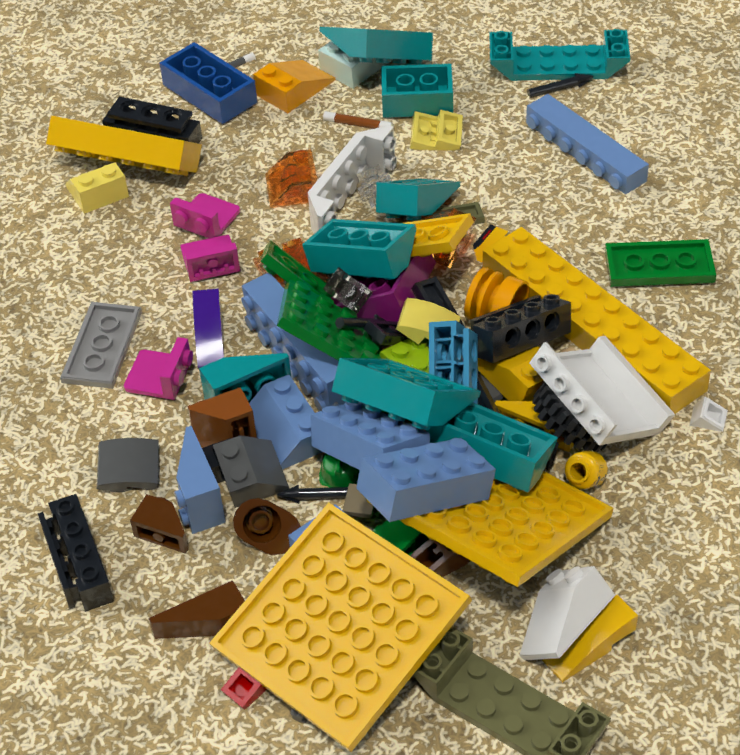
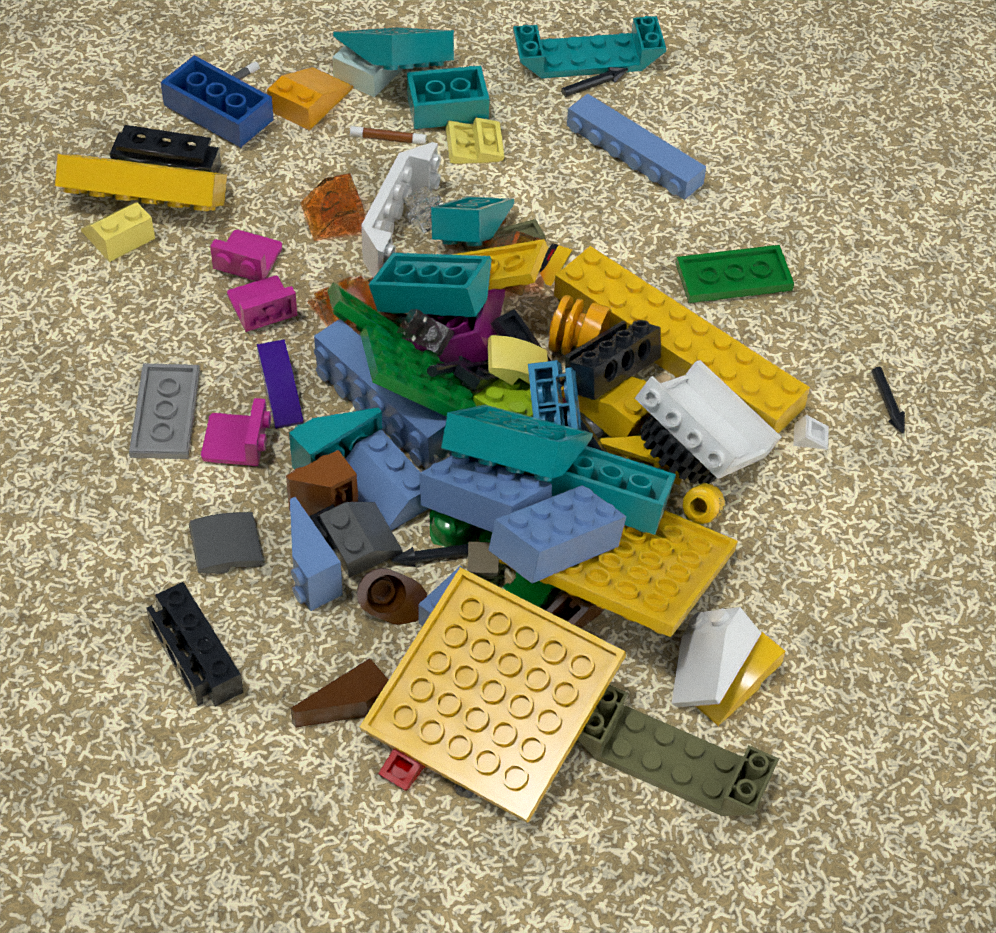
camera: 15 degrees left, 5 degrees up
(159, 524) = (277, 604): reddish brown slope -> none

